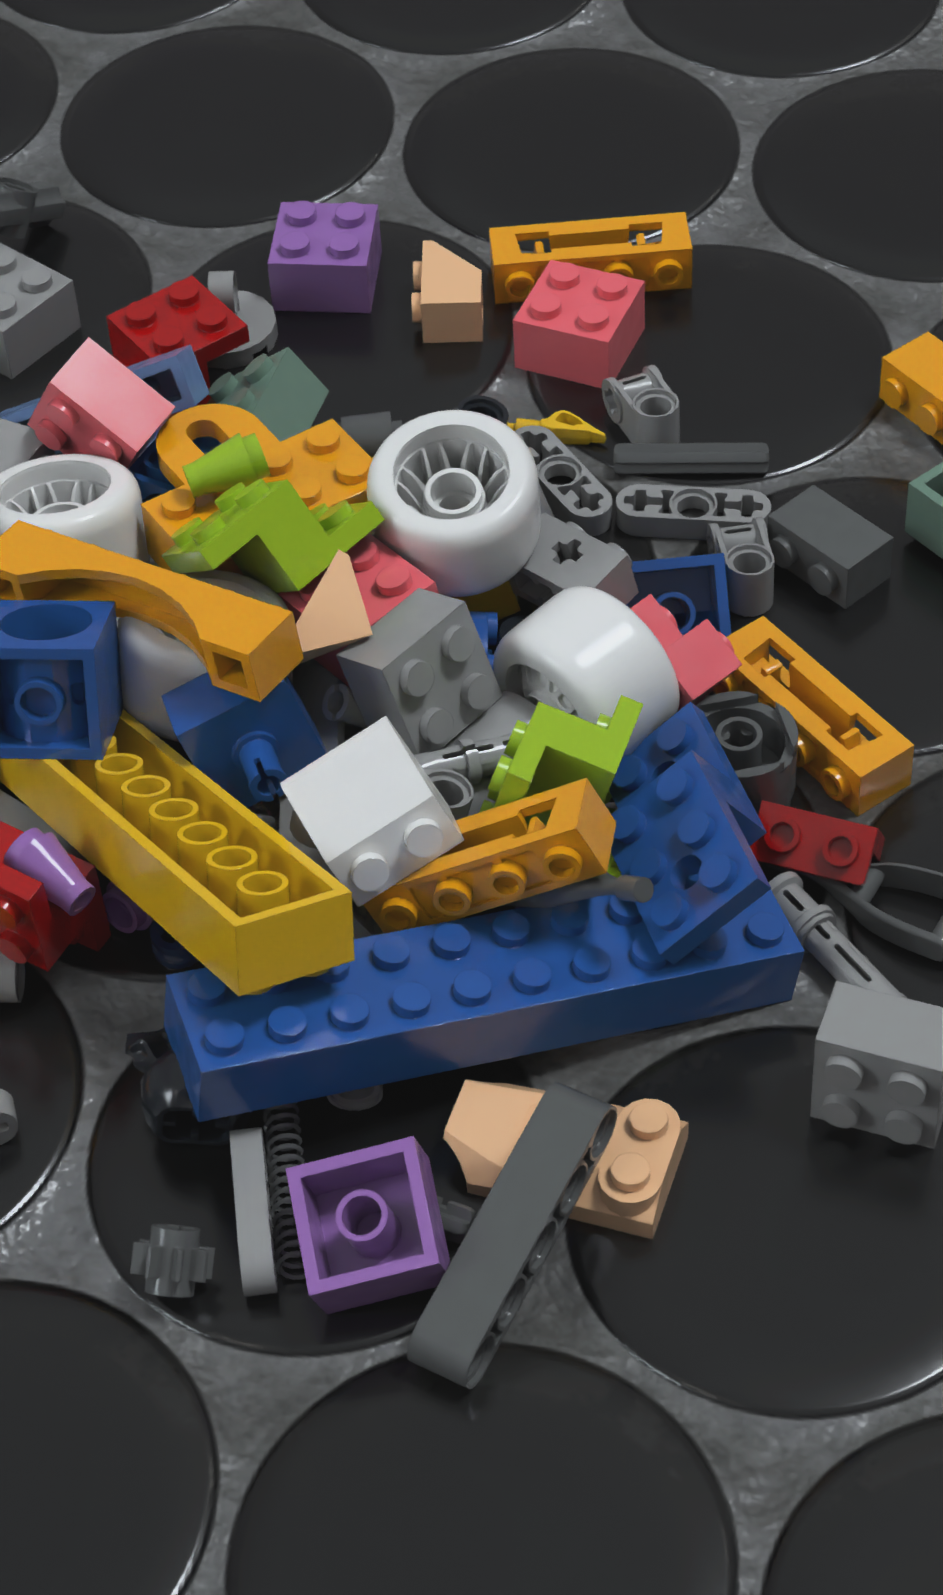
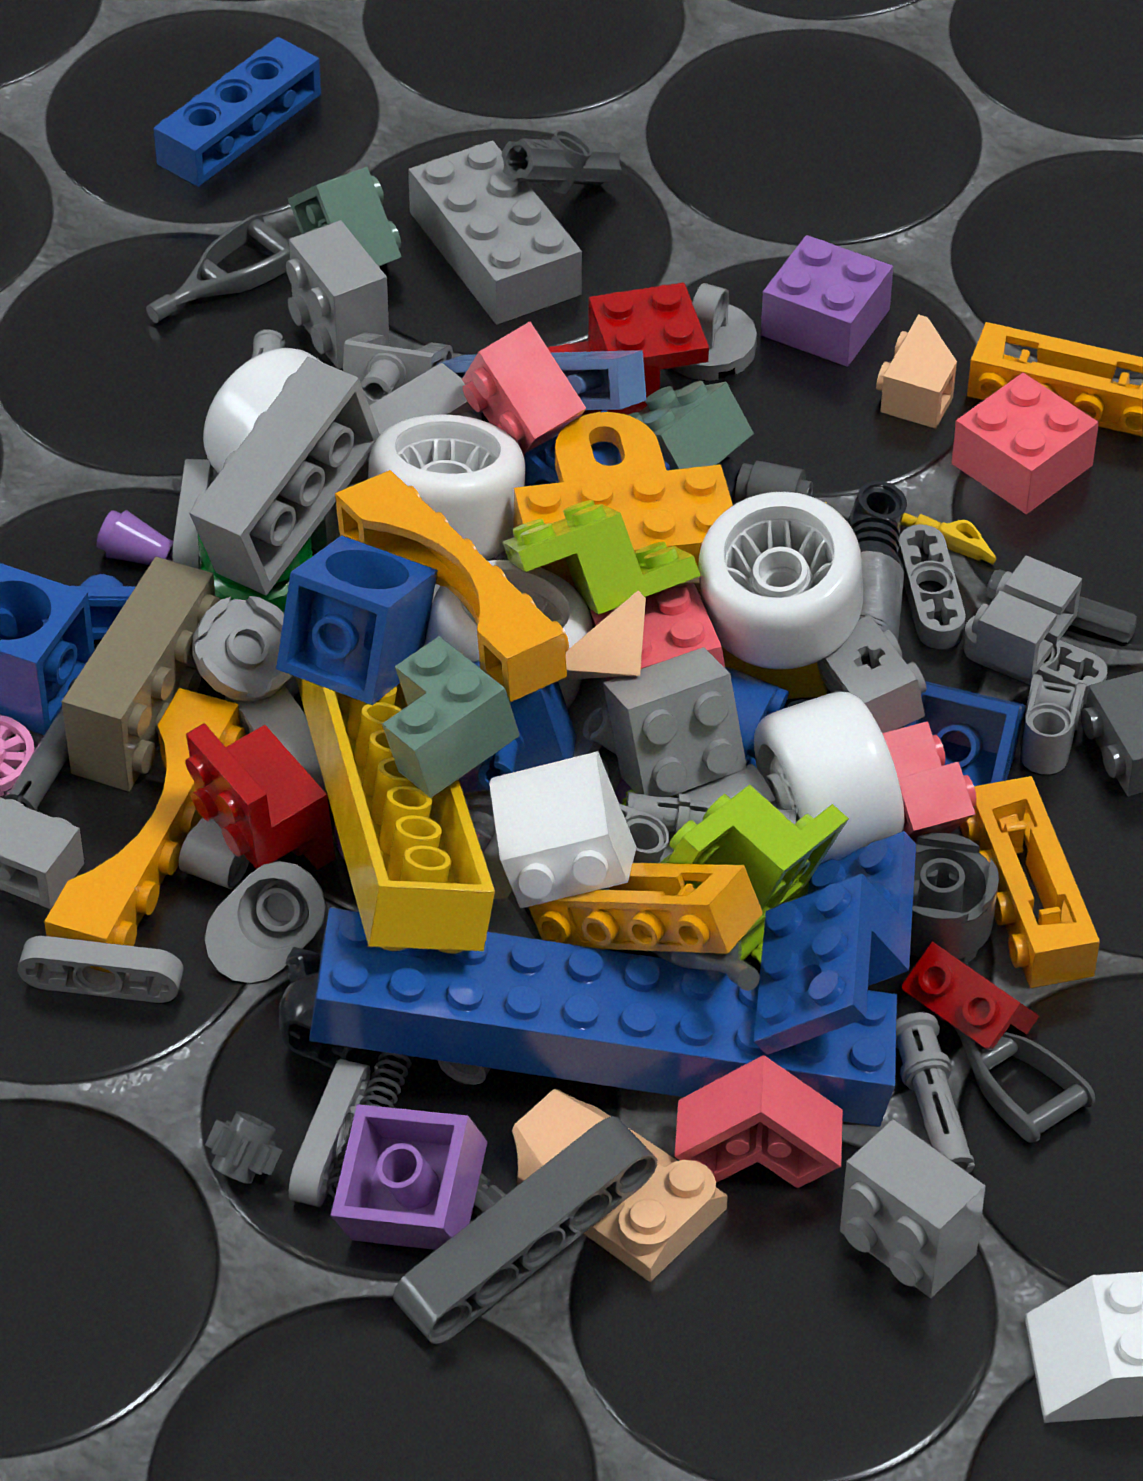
camera: 20 degrees right, 0 degrees up
(47, 861) = (283, 780): medium lavender cone -> none
(80, 1020) = (263, 921): none -> light grey piece
(206, 737) = (451, 718): none -> sand green brick
(227, 465) = (603, 479): lime cone -> none
(643, 407) = (1042, 534): light grey piece -> none
(674, 475) = (1027, 607): none -> light grey piece
(687, 1032) = (761, 1118): none -> coral brick

